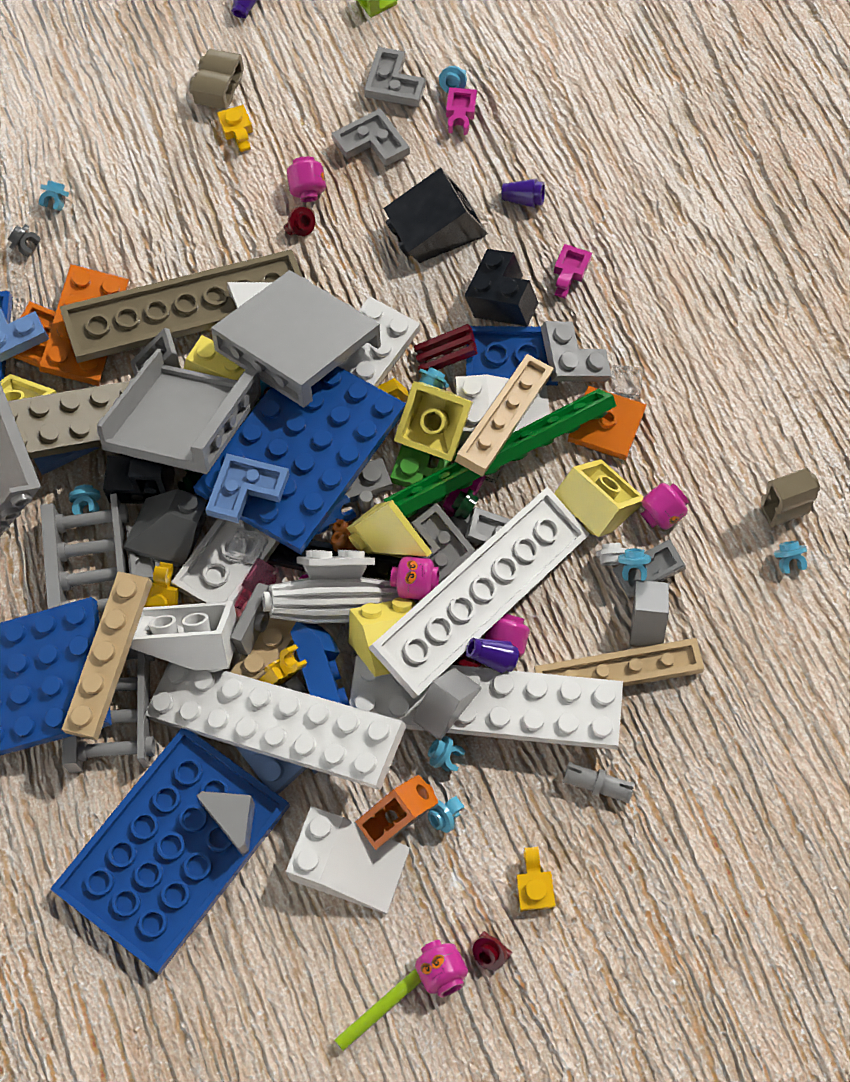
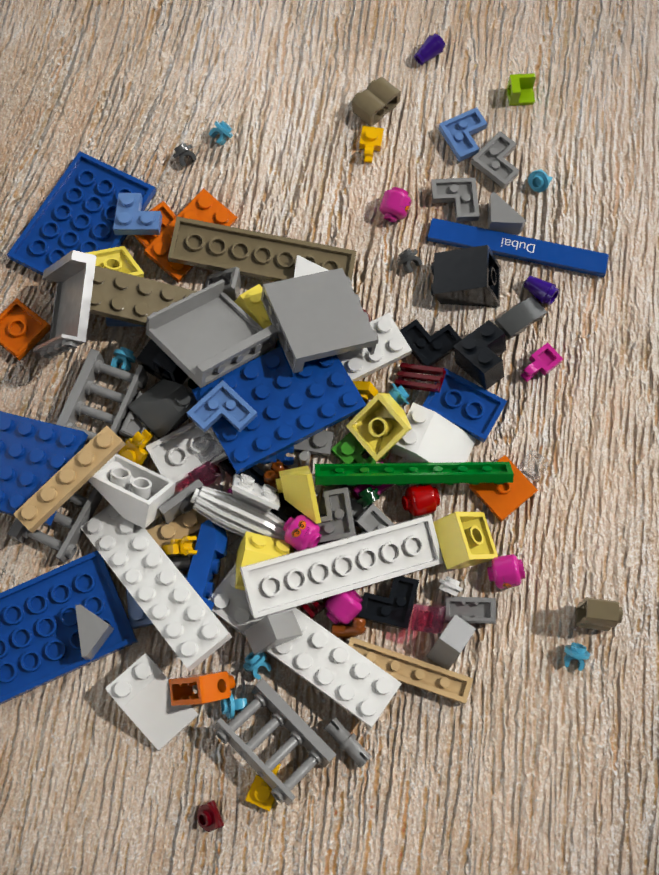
camera: 25 degrees right, 5 degrees up
(300, 222) = (374, 233): dark red plate -> none
(333, 70) = (458, 133): none -> medium blue plate
(354, 228) = (406, 257): none -> dark grey plate
(378, 1010) = (118, 812): lime bar -> none
(436, 136) = (503, 217): none -> light grey slope
(440, 312) = (430, 348): none -> black plate
(441, 968) = (169, 810): dark pink head -> none
(460, 108) = (533, 204): dark pink plate -> none
(472, 160) = (519, 247): none -> blue tile
(495, 654) = (323, 615): dark purple cone -> none
(504, 415) = (428, 449): tan plate -> none
(519, 230) = (520, 317): none -> dark grey slope
(525, 479) = (421, 500): none -> red head
(525, 794) = (300, 735): none -> light grey fence
(534, 658) = (347, 631): none -> dark orange arm
(566, 611) = (393, 610): none -> black plate
(568, 360) = (499, 427): light grey plate -> none
(609, 598) = (428, 618): none -> clear pink brick
(634, 559) = (462, 600): medium azure plate -> none

